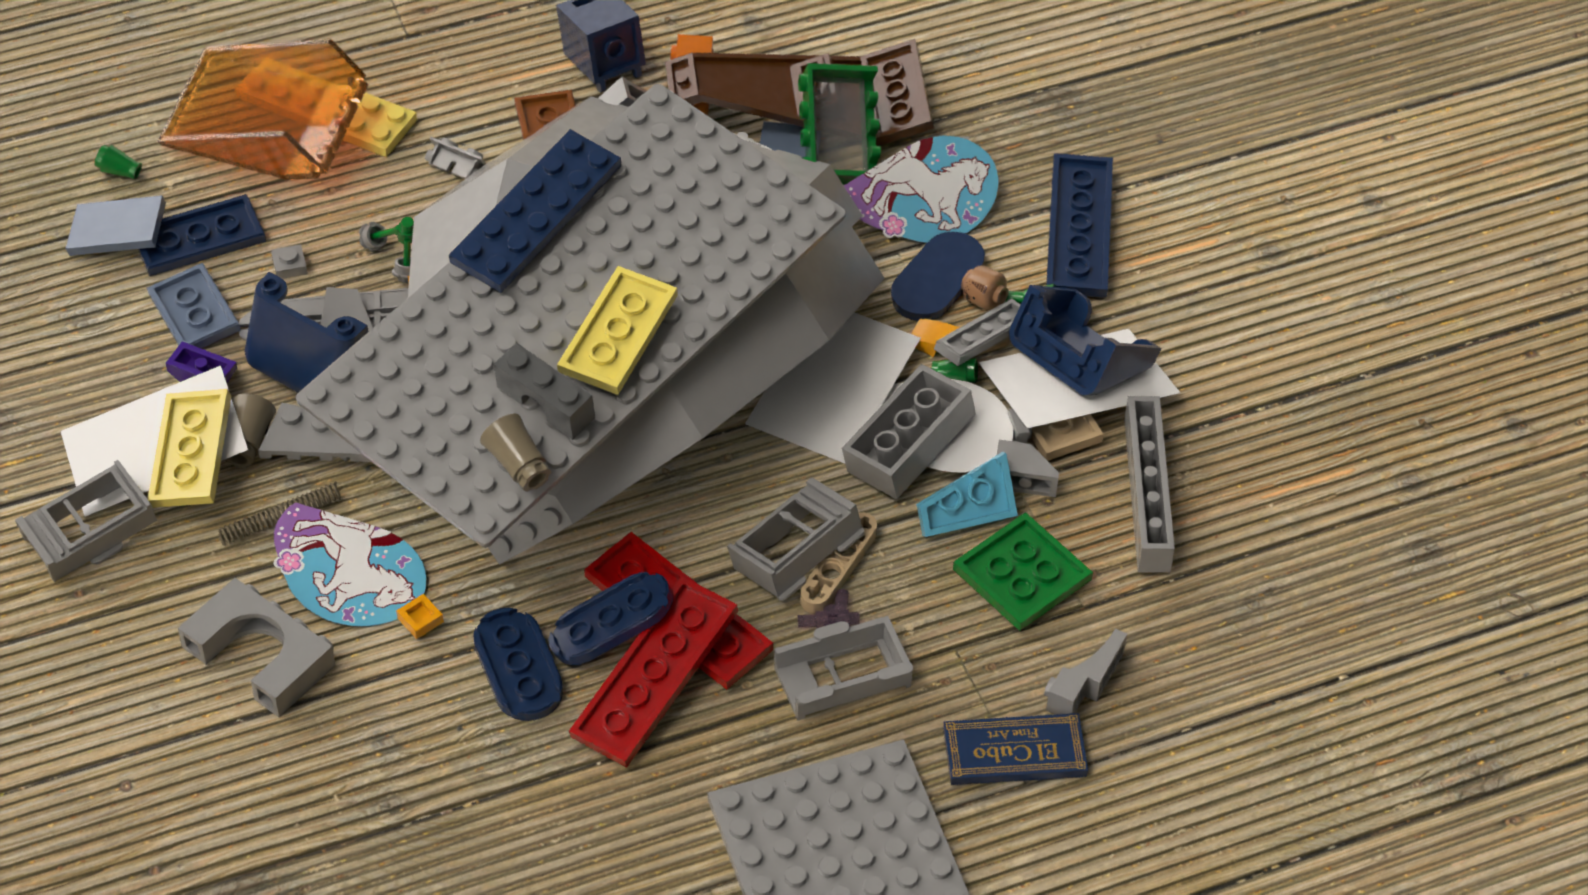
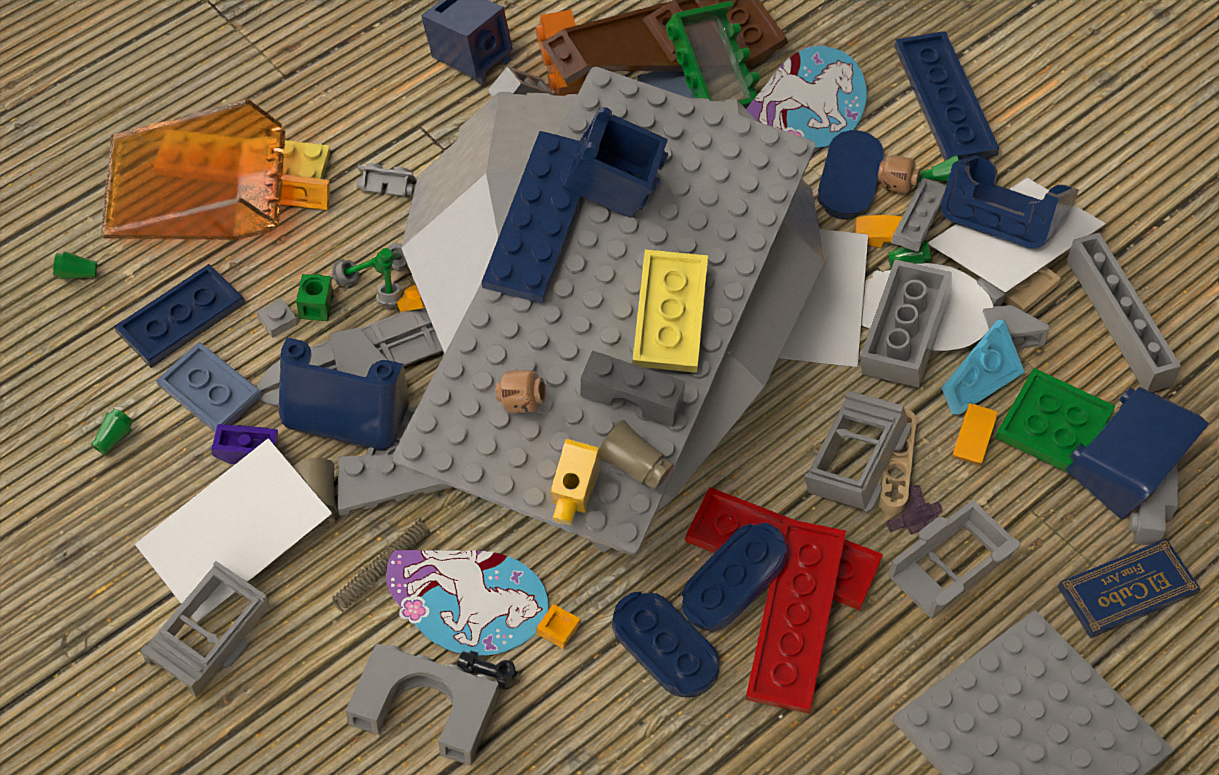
camera: 20 degrees left, 5 degrees up
(84, 322) = (112, 430): none -> green cone
(116, 225) = (100, 328): tile -> none
(189, 448) = (277, 528): light yellow plate -> none
(332, 251) = (314, 297): none -> green brick
(346, 639) = (503, 671): none -> black bar
(368, 149) = (305, 192): none -> light orange plate
(437, 364) = (521, 391): none -> medium nougat head
(448, 456) = (578, 470): none -> yellow torso
(540, 109) = (442, 118): dark orange tile -> none
(614, 170) = (616, 163): none -> dark blue container
(931, 558) = (975, 434): none -> light orange slope
(1084, 614) = (1135, 449): none -> dark blue windscreen

